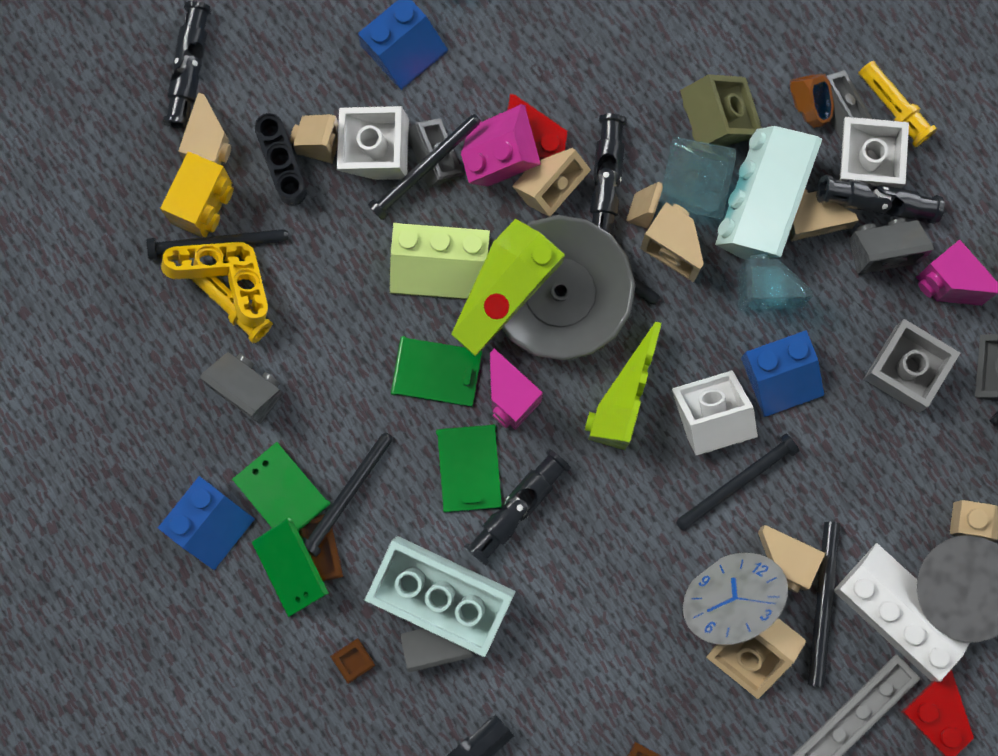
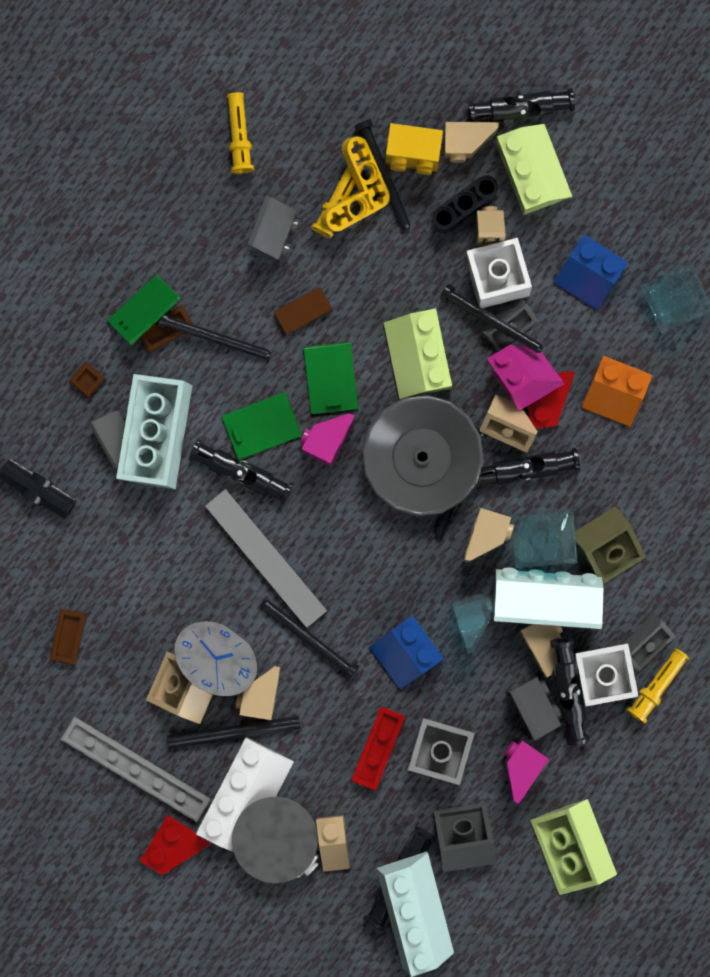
camera: 75 degrees right, 5 degrees up
(128, 398) = (240, 145): none -> yellow pin
(206, 523) = (160, 235): blue slope -> none
(262, 74) = (533, 167): none -> yellowish green slope
(280, 489) = (202, 284): green container -> none
(348, 381) = (303, 311): none -> reddish brown tile
(510, 275) = (416, 411): lime wedge -> none
(547, 52) = (616, 391): none -> orange slope
(620, 406) = (340, 528): lime wedge -> none
(627, 507) = (266, 558): none -> light grey tile
(645, 205) = (510, 504): tan slope -> none
(715, 412) = (359, 605): white slope -> none
(813, 98) = (641, 616): dark orange rock -> none
(887, 439) = (378, 748): none -> red plate

